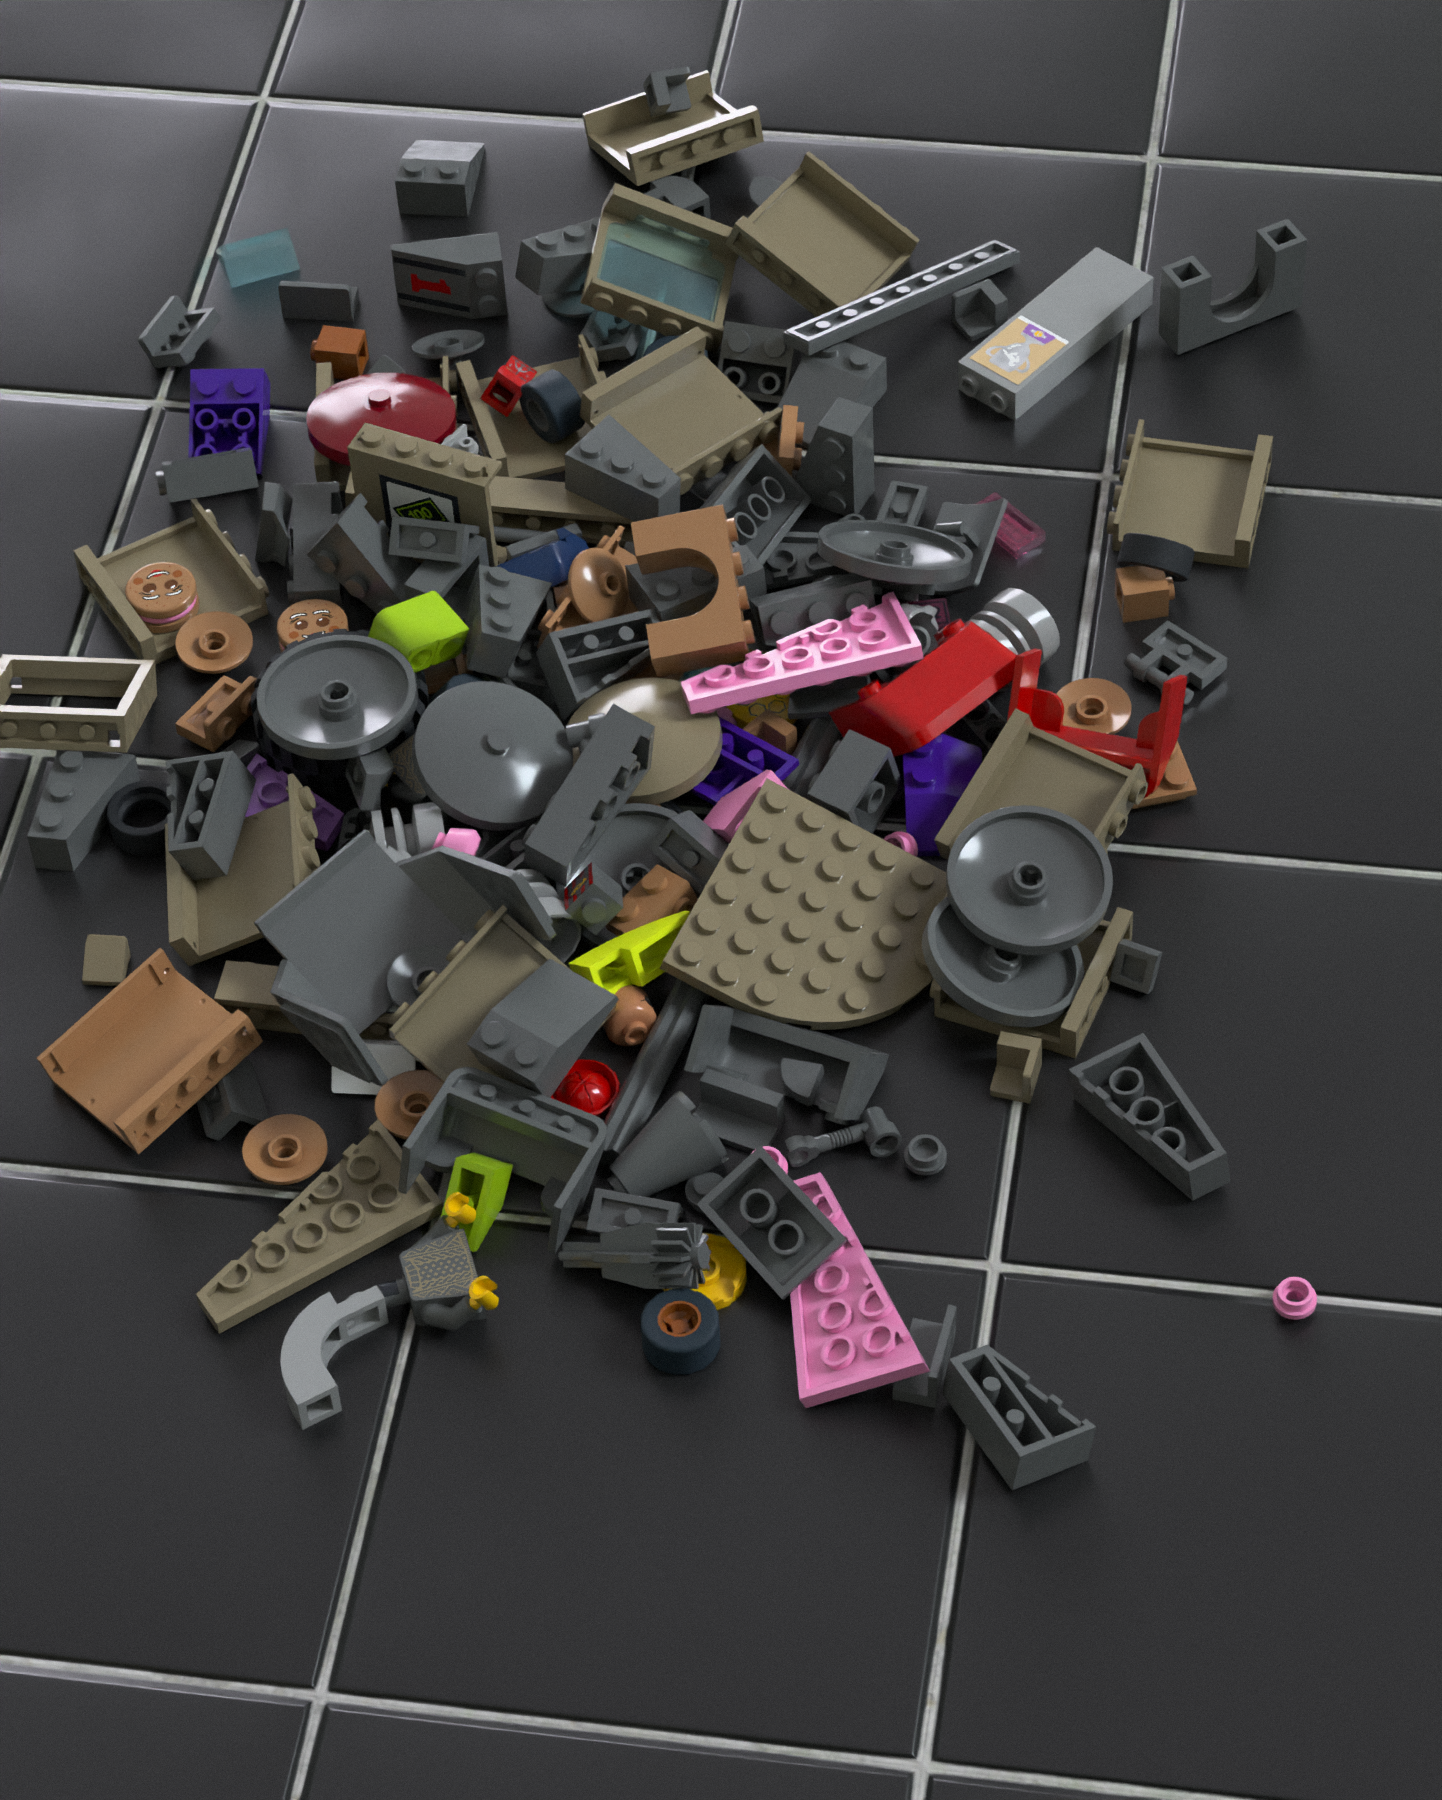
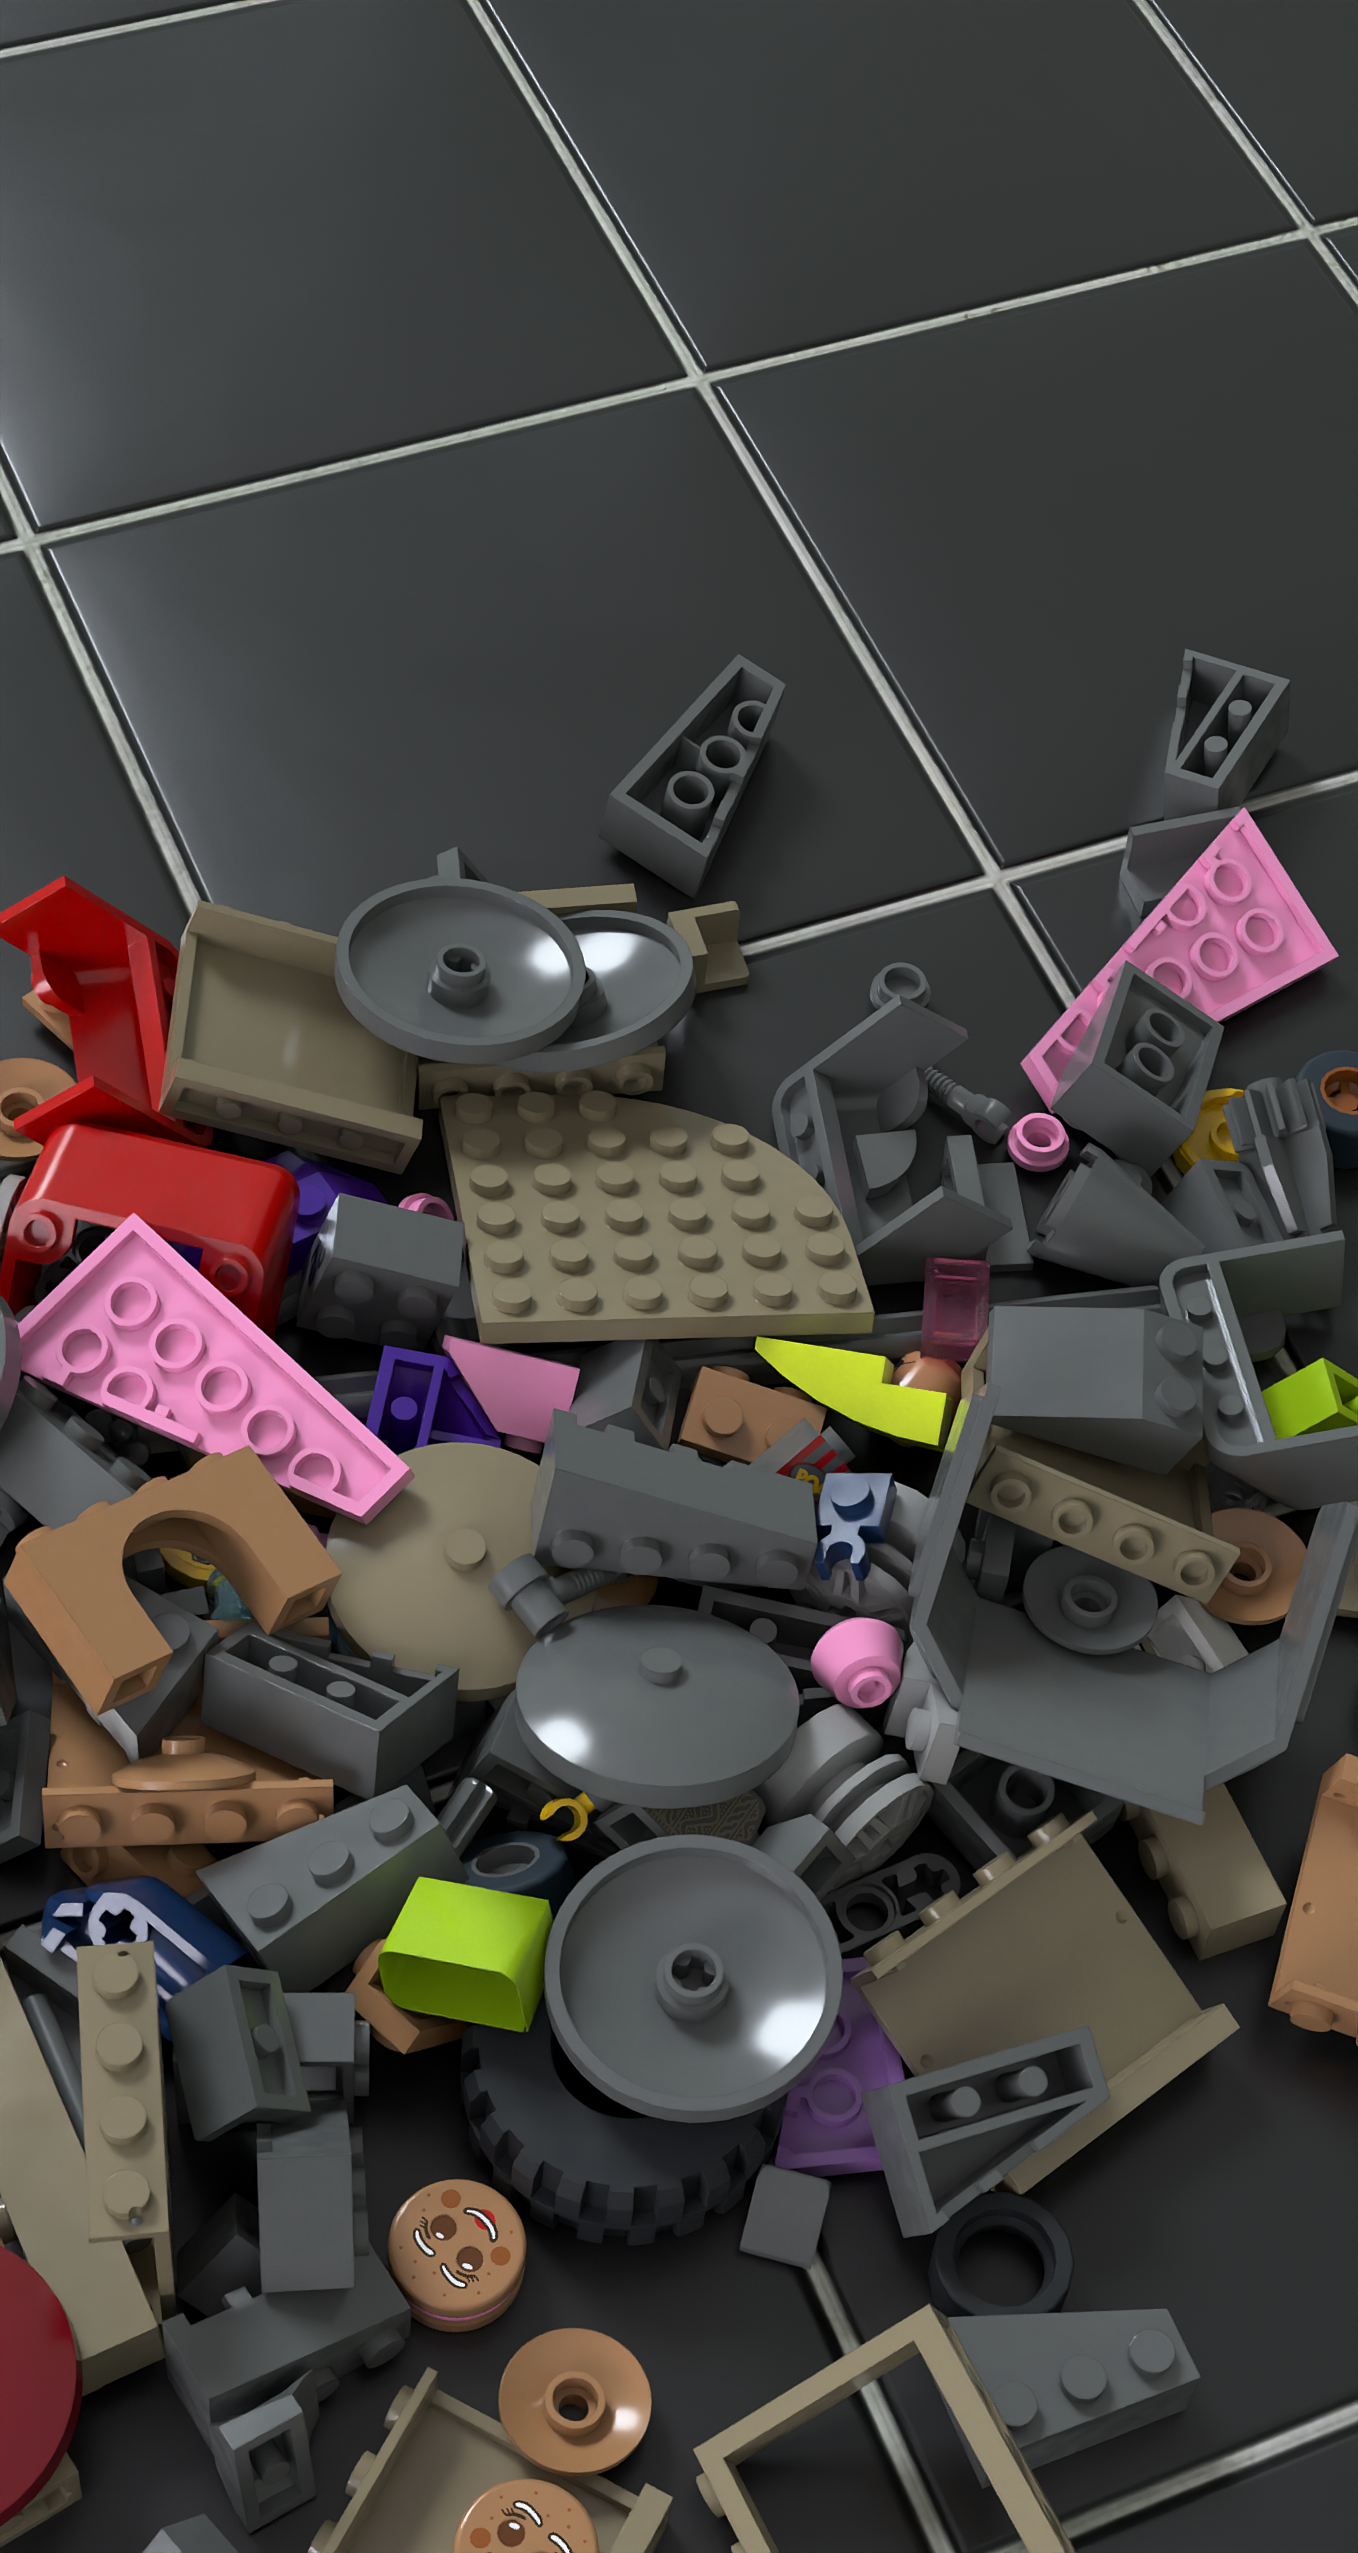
camera: 130 degrees left, 5 degrees up
(105, 960) = (1295, 2151): dark tan slope -> none
(218, 713) = (717, 2290): medium nougat bracket -> none
(544, 880) = (850, 1514): none -> plate
(656, 1034) = (954, 1307): none -> clear pink tile
(1297, 1289) = (848, 587): bright pink plate -> none

